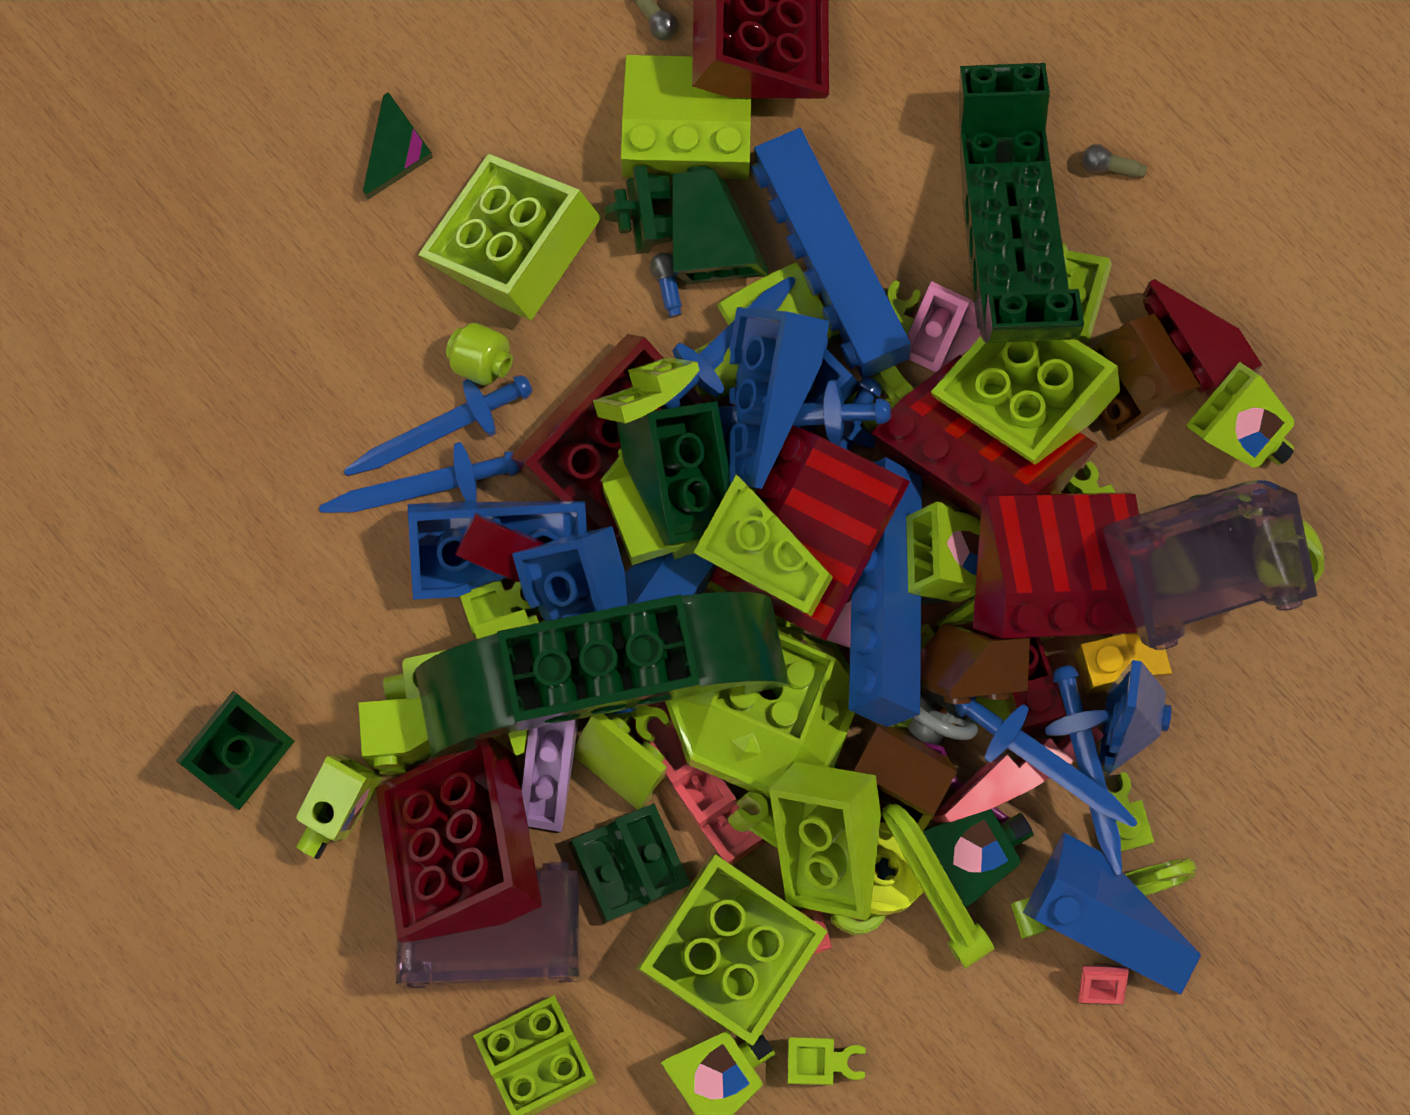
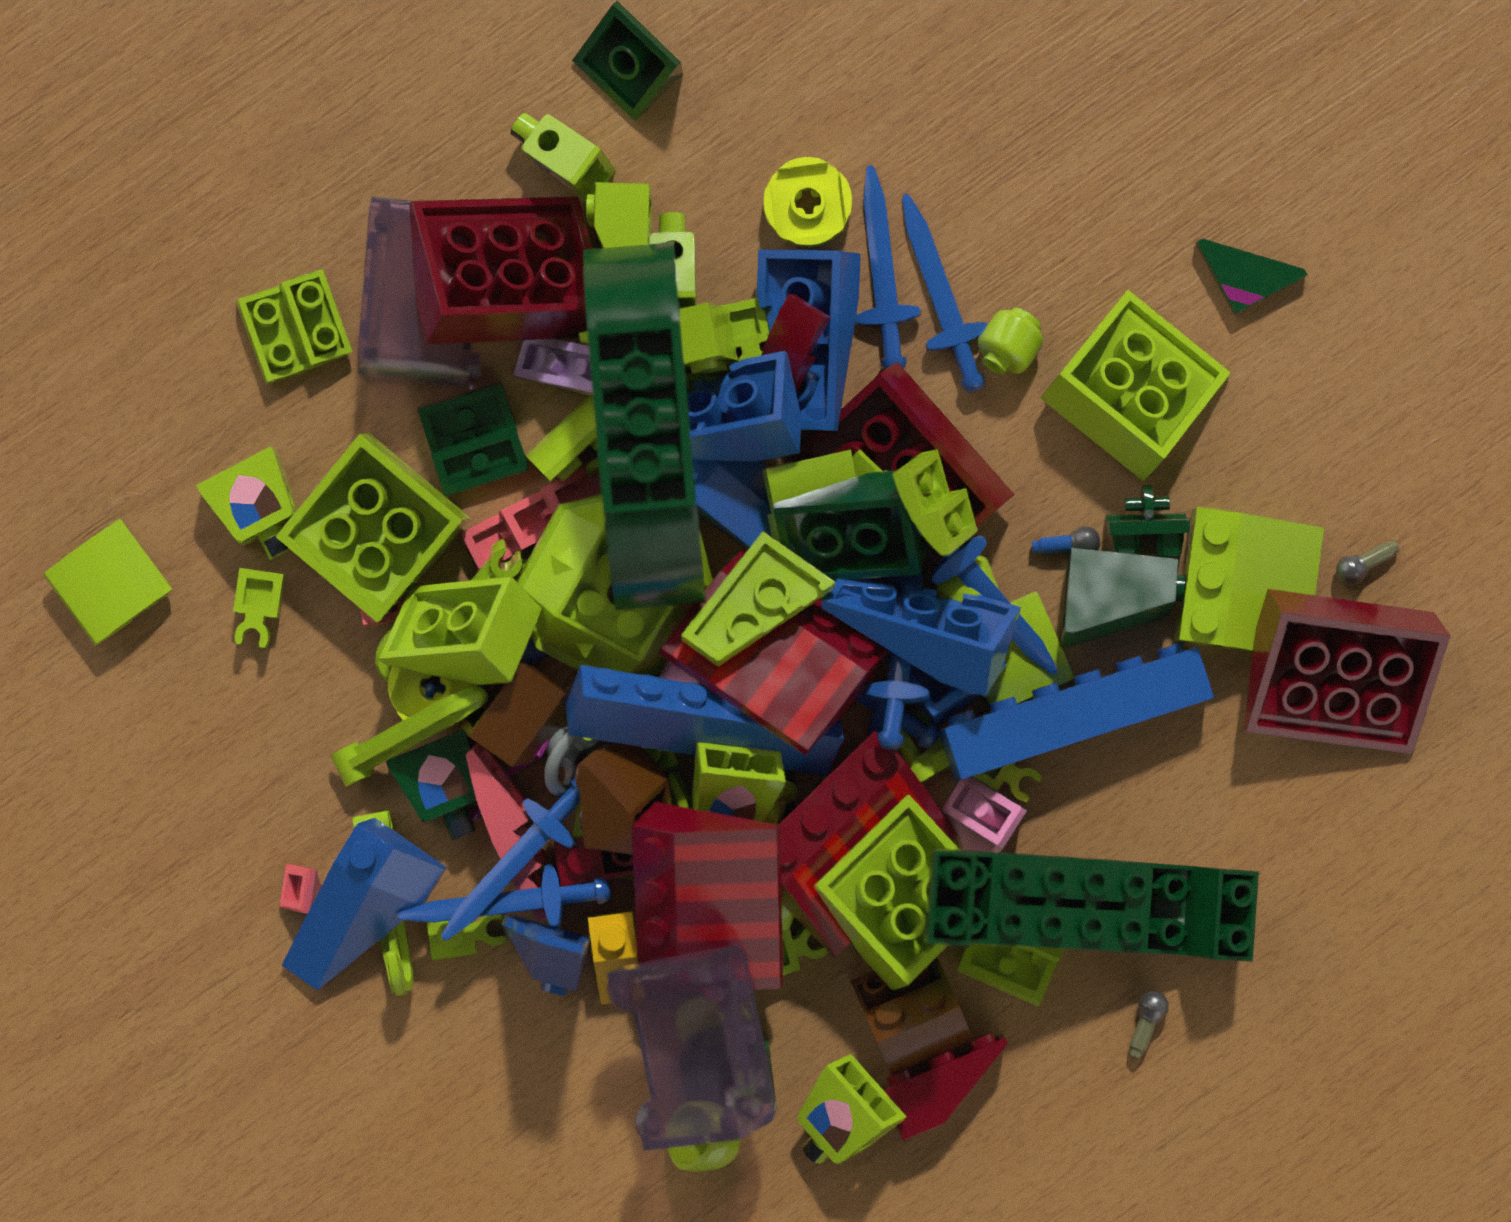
camera: 100 degrees right, 10 degrees up
(340, 548) = (787, 187): none -> neon yellow plate

